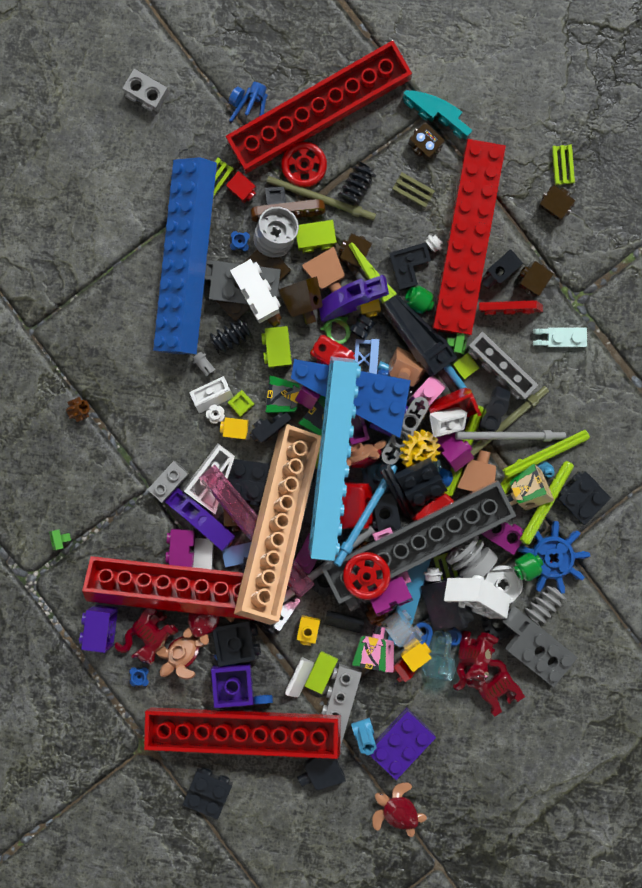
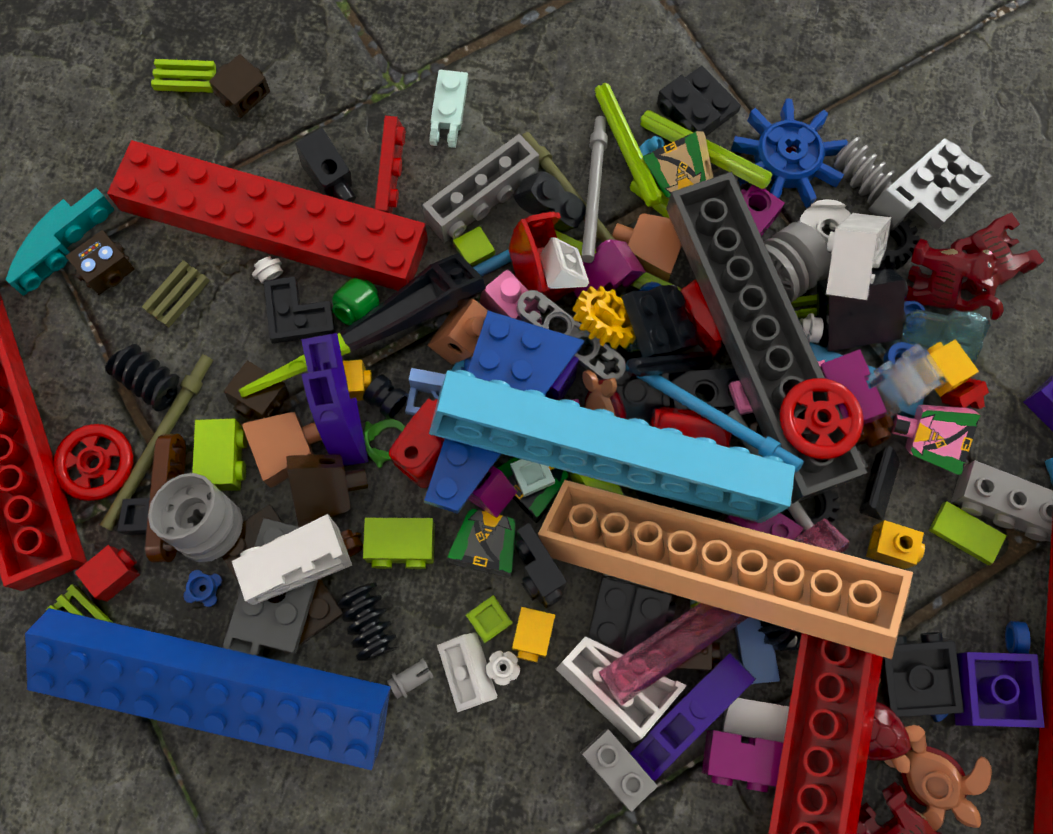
camera: 85 degrees left, 15 degrees down
(299, 677) = (977, 573): white slope -> none
(317, 417) = (531, 476): none -> light aqua plate
(458, 344) = (436, 249): bright green tile -> none
(528, 567) = (807, 179): green head -> none
(534, 278) = (351, 129): dark brown head -> none

